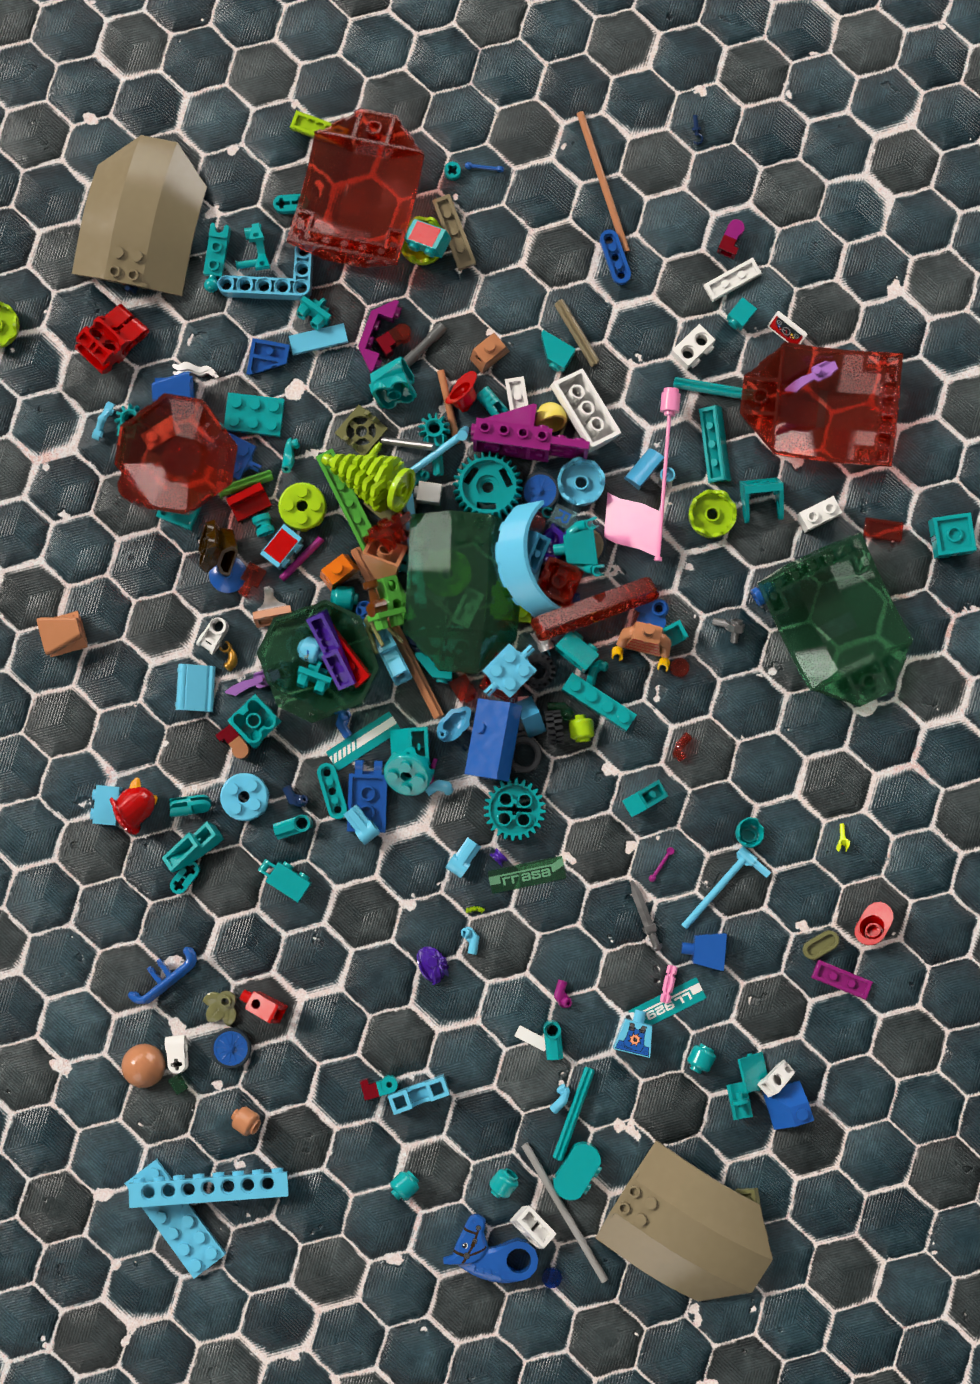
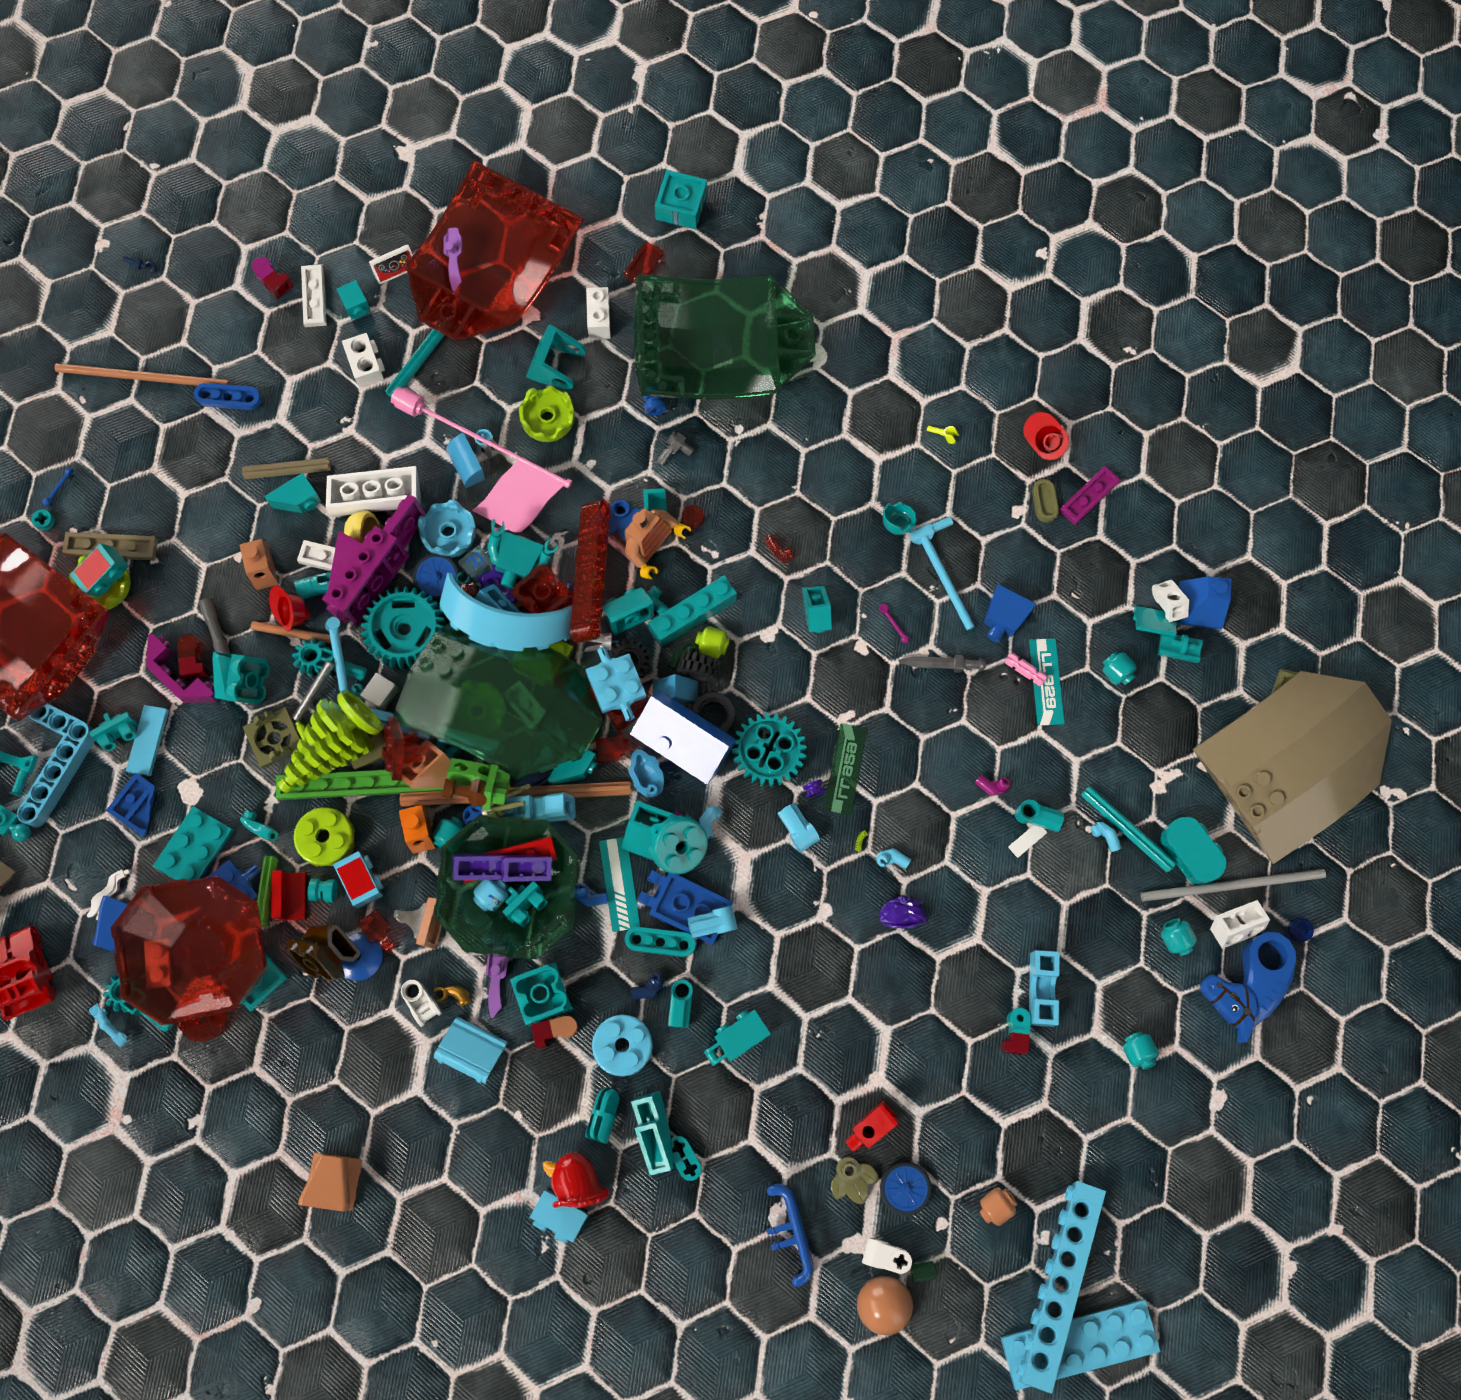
camera: 75 degrees left, 10 degrees down
(304, 555) = (382, 865): magenta bar -> none
(635, 1035) = (1068, 726): torso -> none
(715, 444) = (475, 384): teal slope -> none

